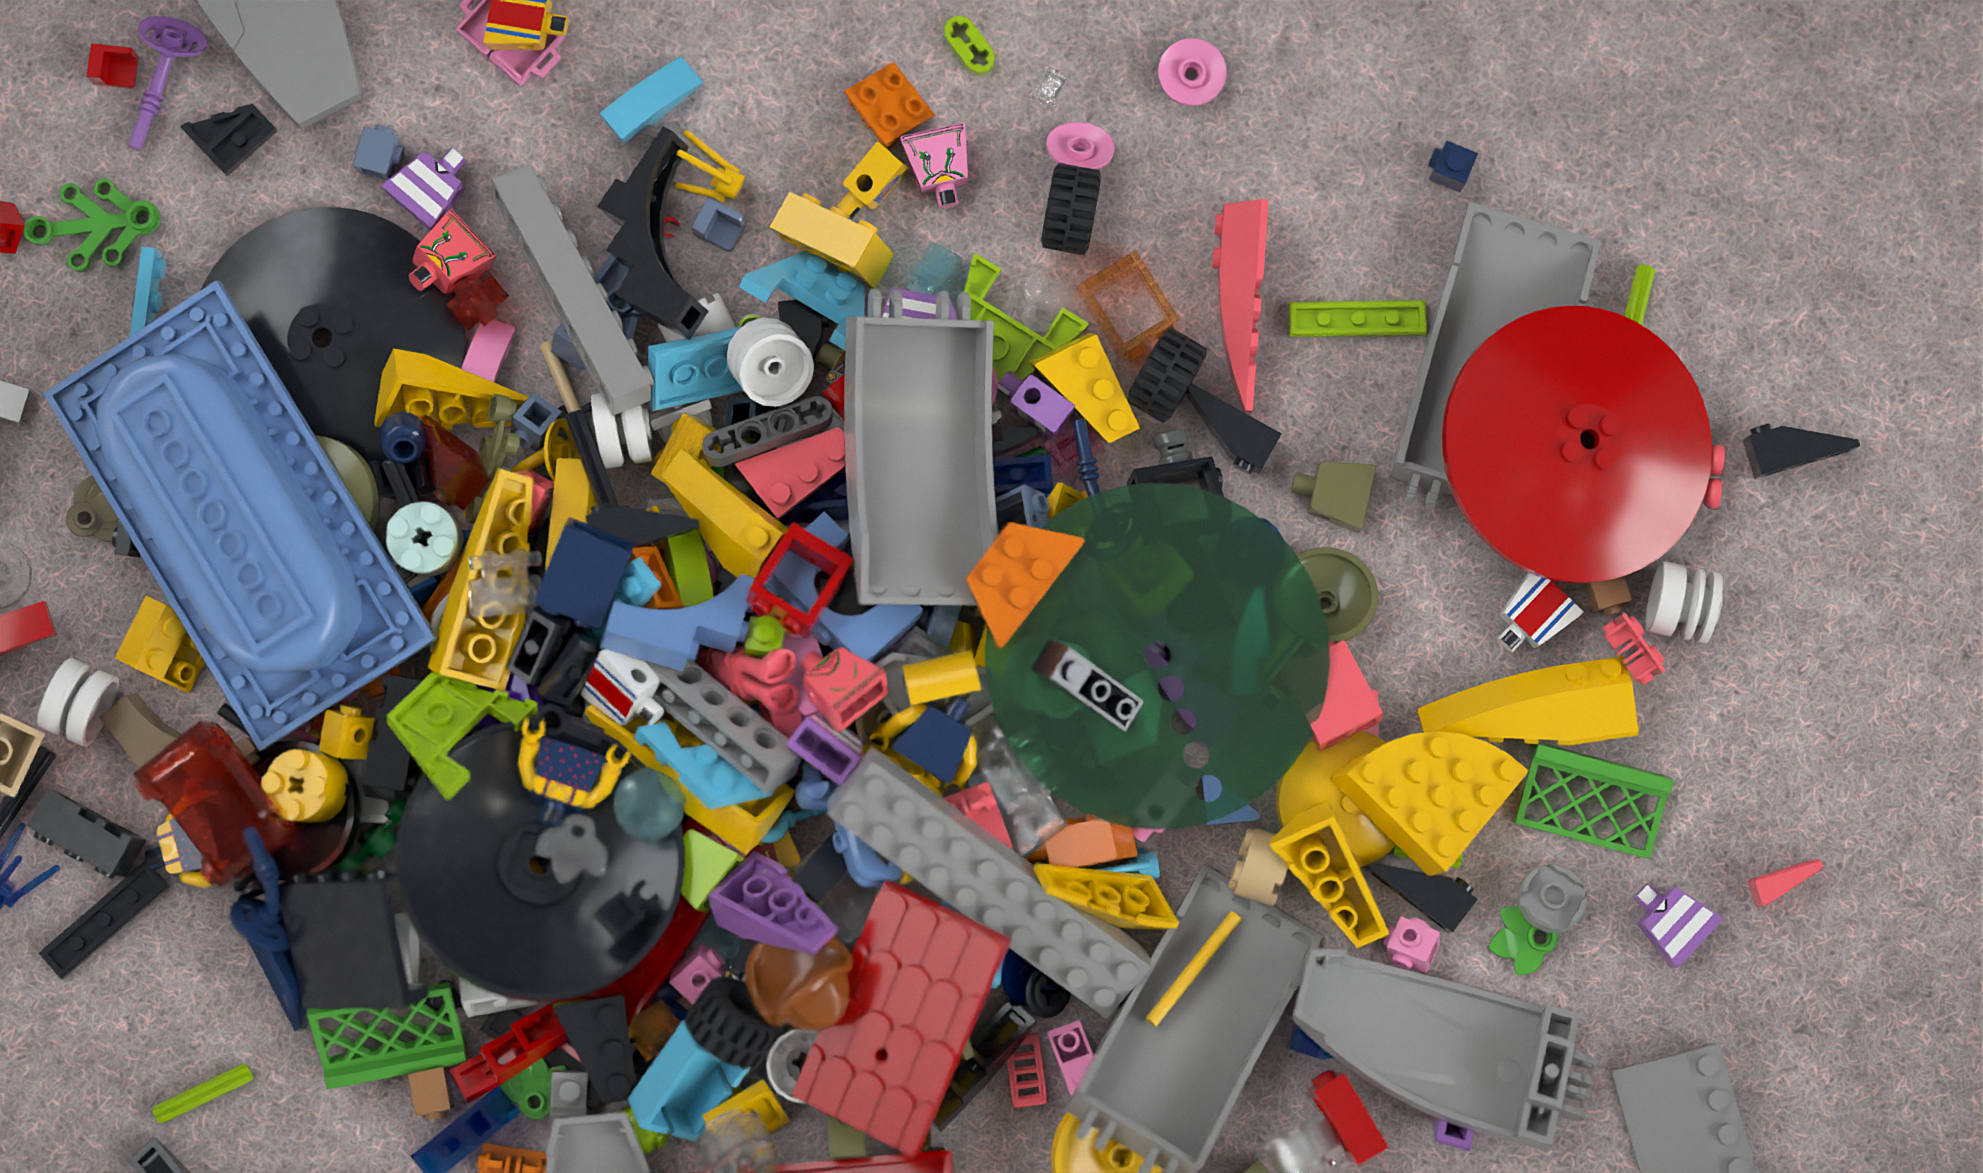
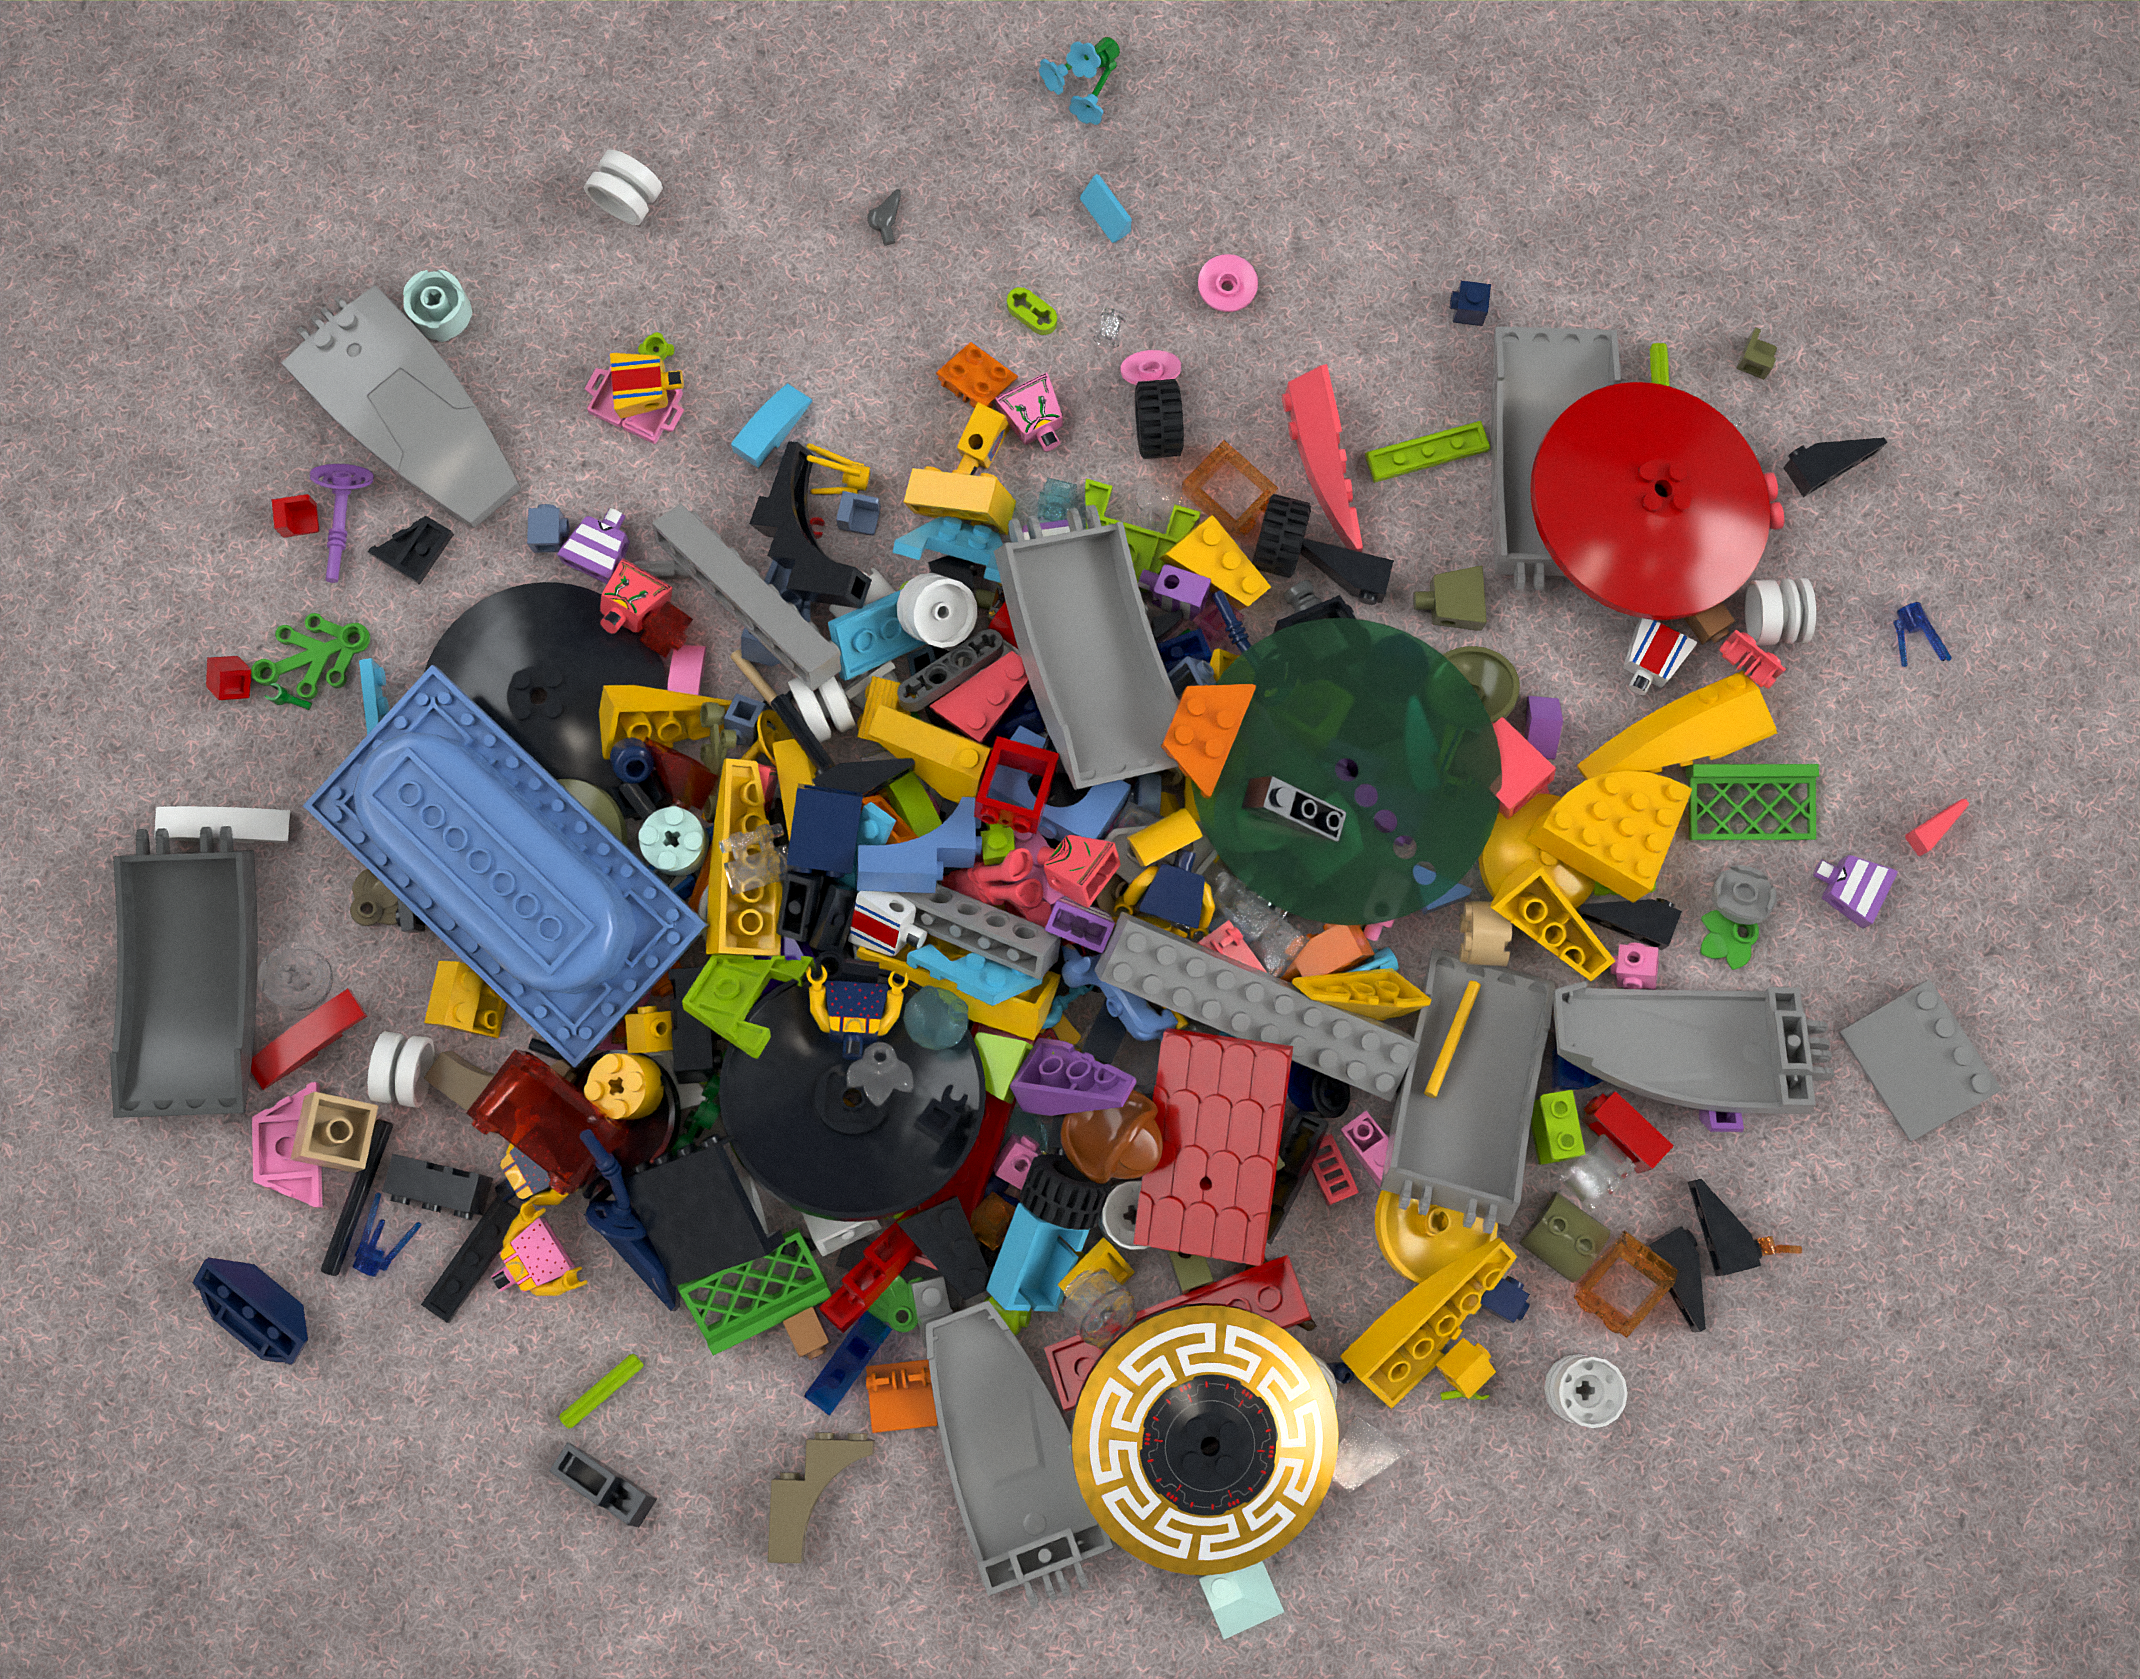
camera: 10 degrees left, 5 degrees down
(53, 263) = (284, 697): none -> green hand
(169, 937) = (535, 1257): none -> torso
(490, 229) = (663, 569): none -> light grey axle
(1273, 1093) = (1556, 1128): none -> lime panel
(1391, 657) = (1543, 724): none -> medium lavender slope
(1751, 308) = (1757, 356): none -> olive panel
(1832, 649) = (1915, 619): none -> clear blue plant

